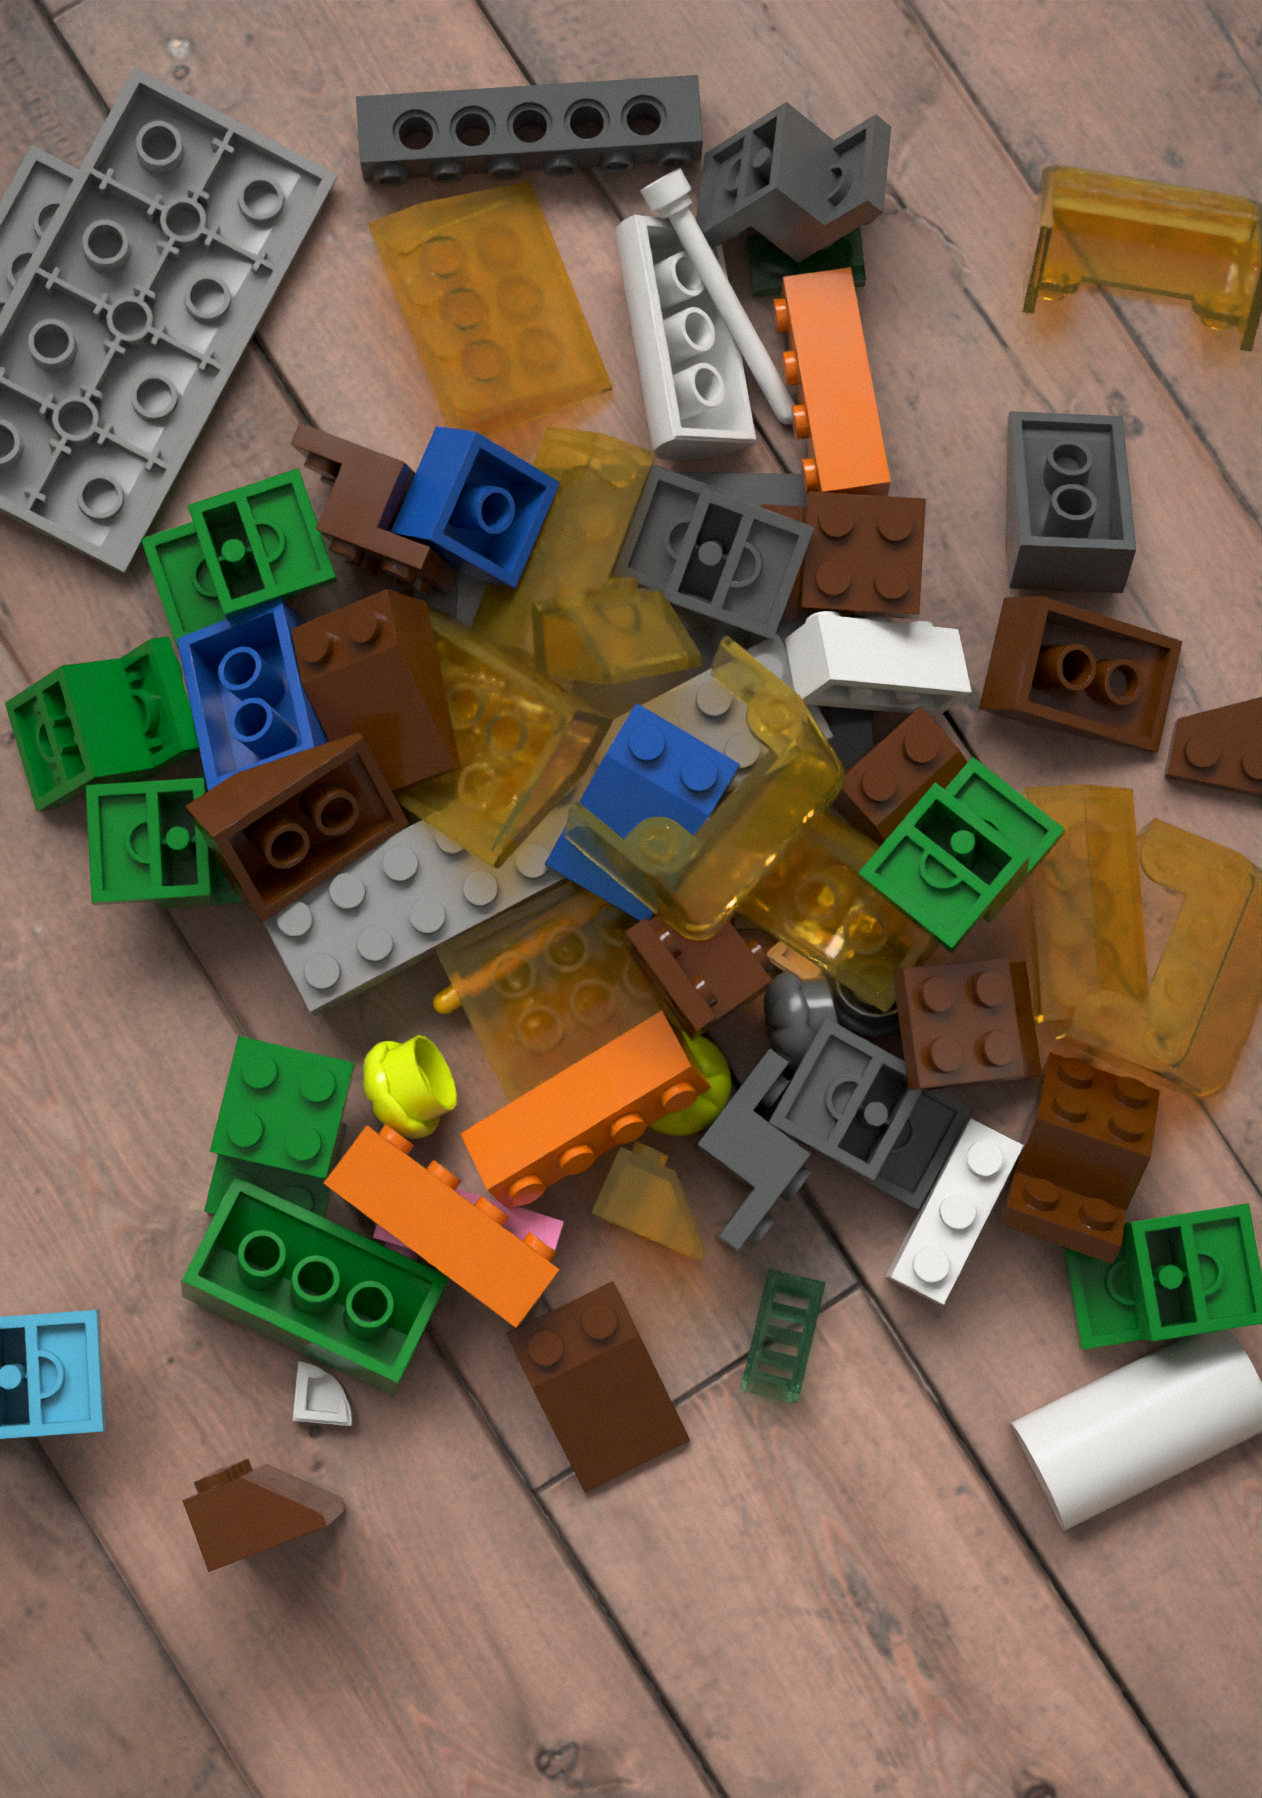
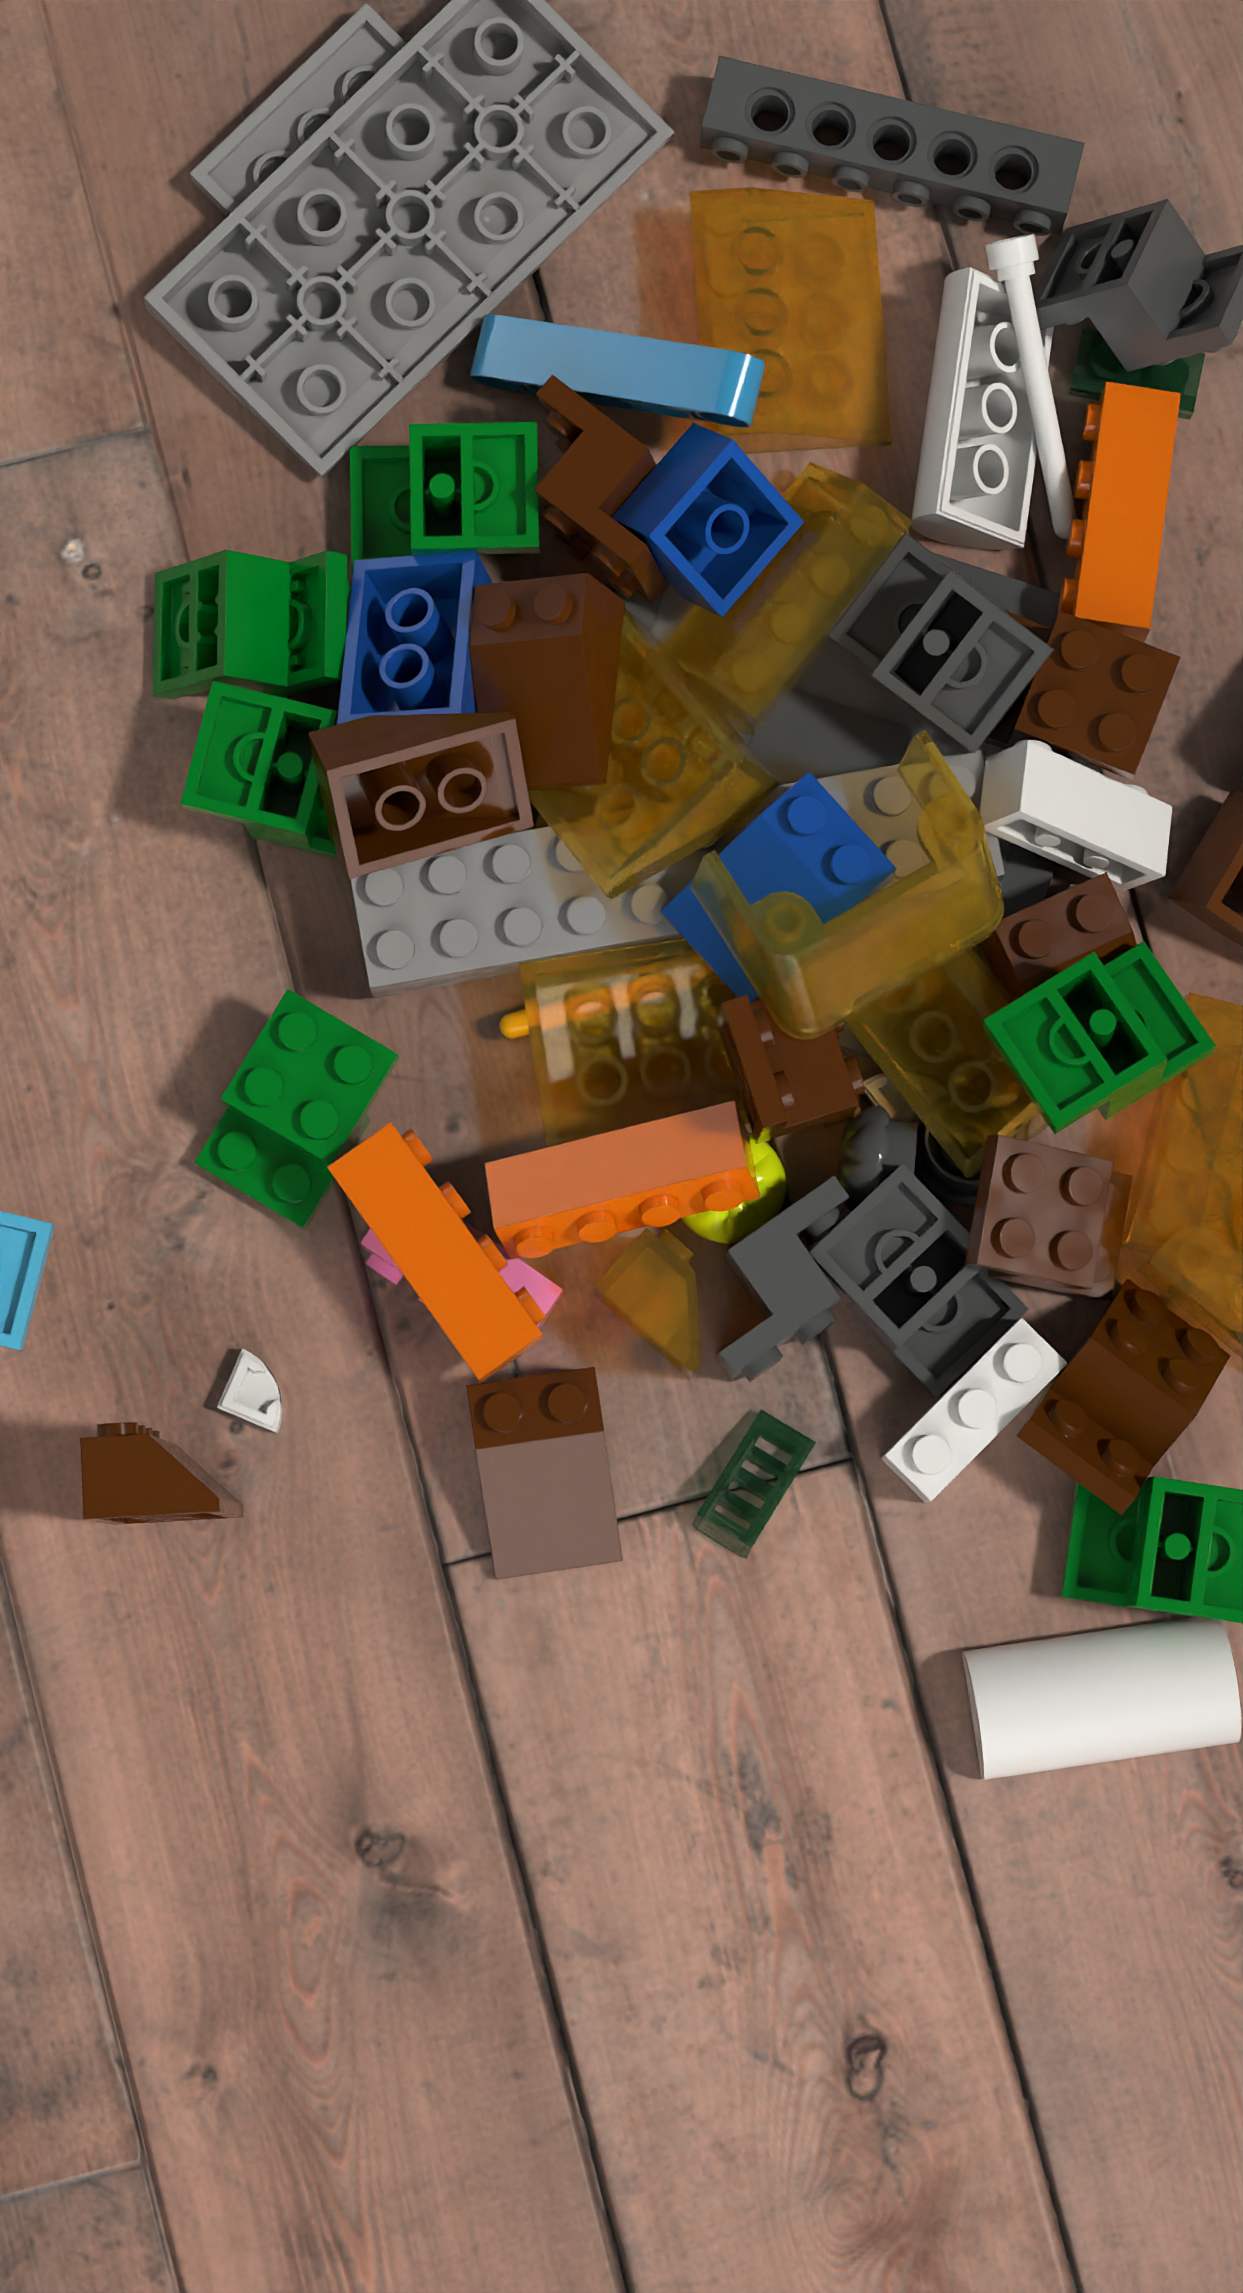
camera: 20 degrees right, 0 degrees up
(313, 1286) = (283, 1274): green slope -> none
(356, 399) = (619, 369): none -> dark azure beam
(409, 1085) = (447, 1099): neon yellow piece -> none
(610, 634) = (805, 692): clear yellow slope -> none

